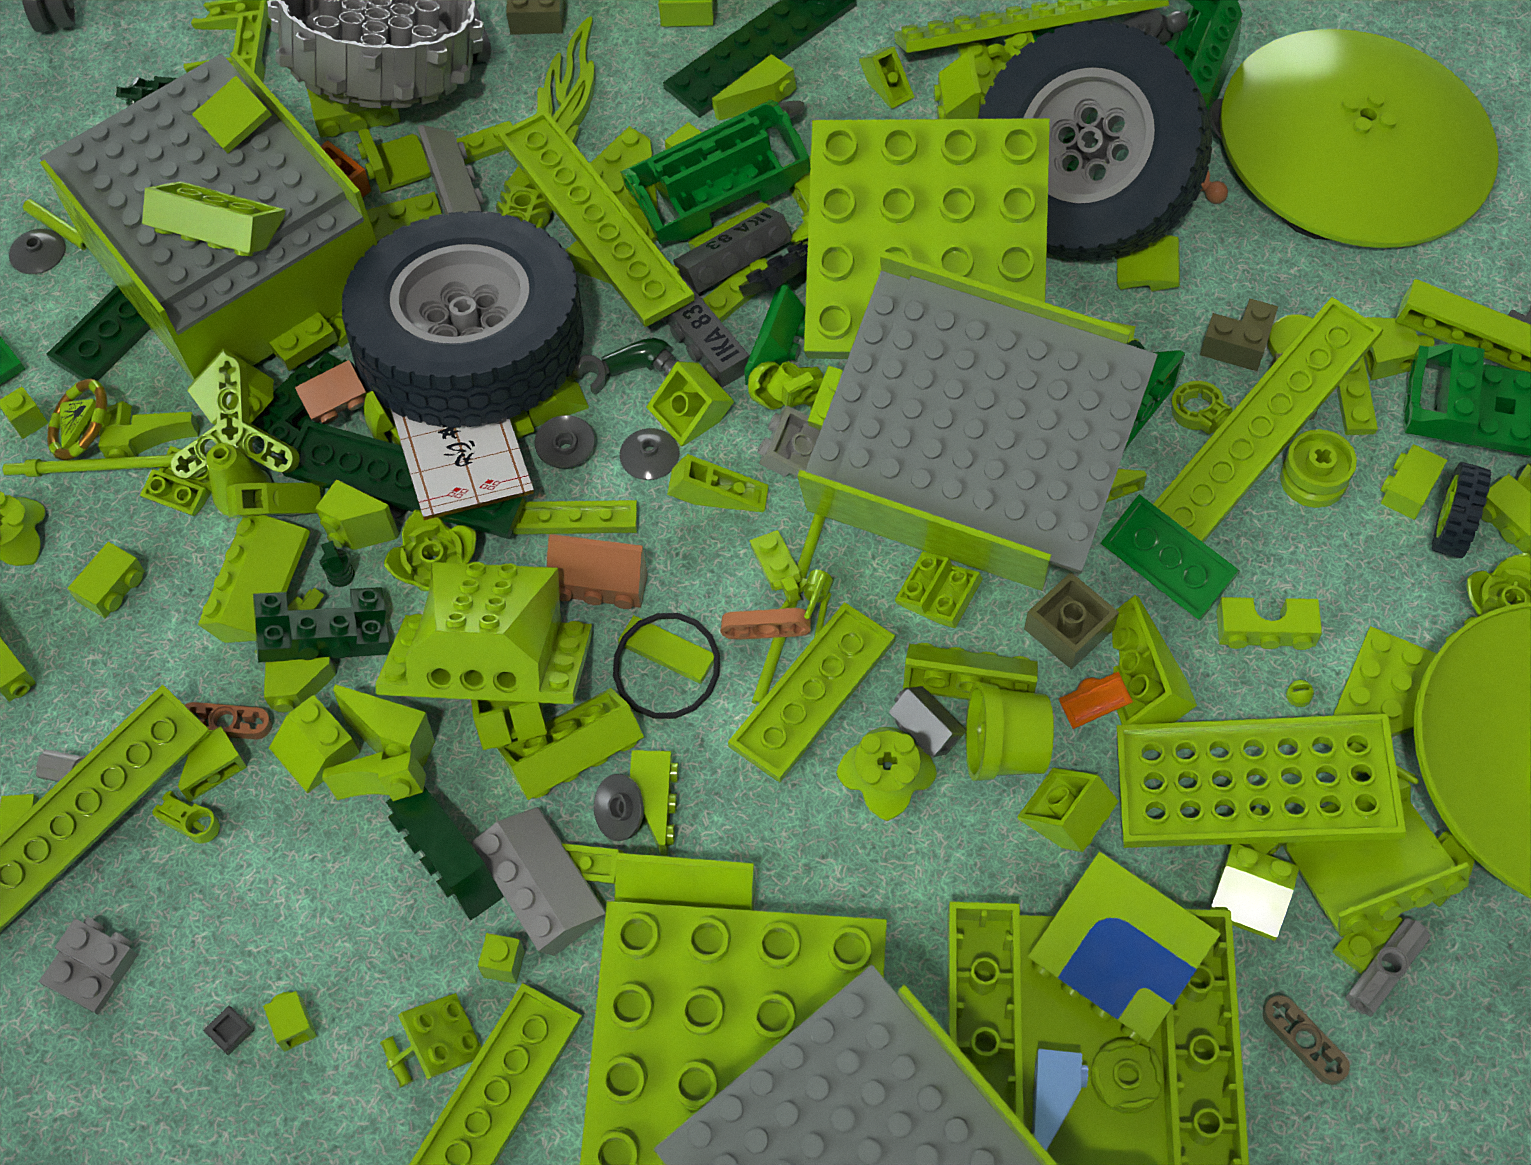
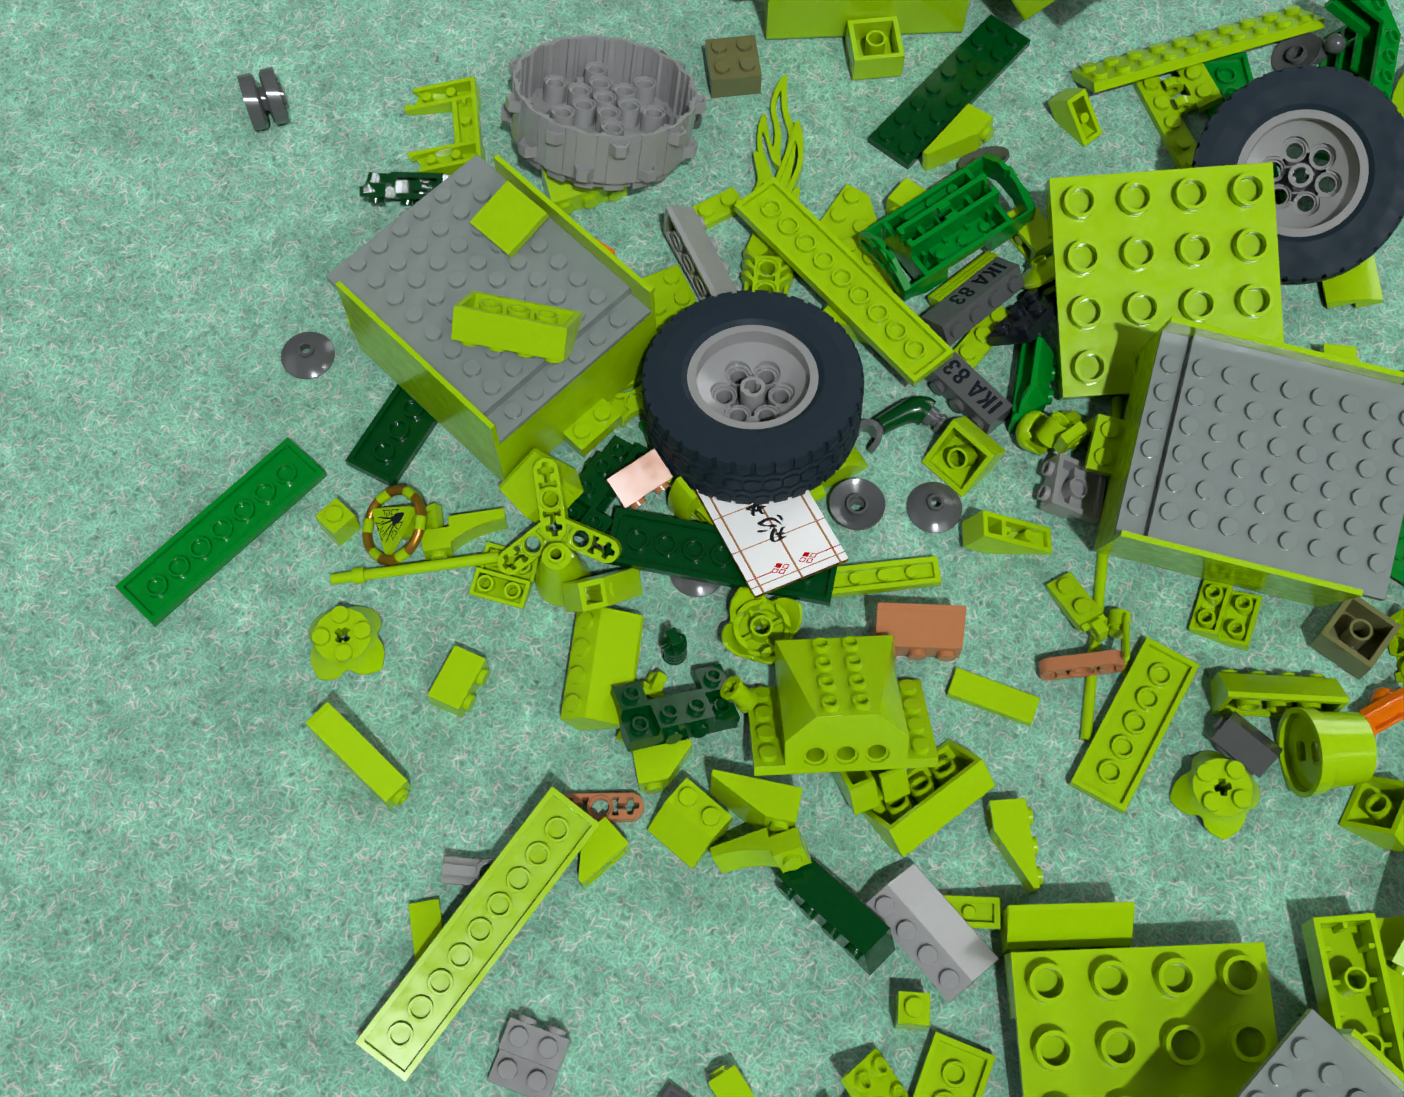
camera: 10 degrees left, 5 degrees up
(54, 222) = (321, 326): lime piece -> none
(183, 817) = (583, 905): lime piece -> none
(355, 518) = (684, 599): lime slope -> none
(390, 617) = (737, 692): none -> lime bush
(394, 161) = (633, 236): lime bracket -> none
(618, 807) = (977, 860): dark grey dish -> none
(666, 715) = (1030, 750): black piece -> none
(958, 89) = (1149, 129): lime slope -> none

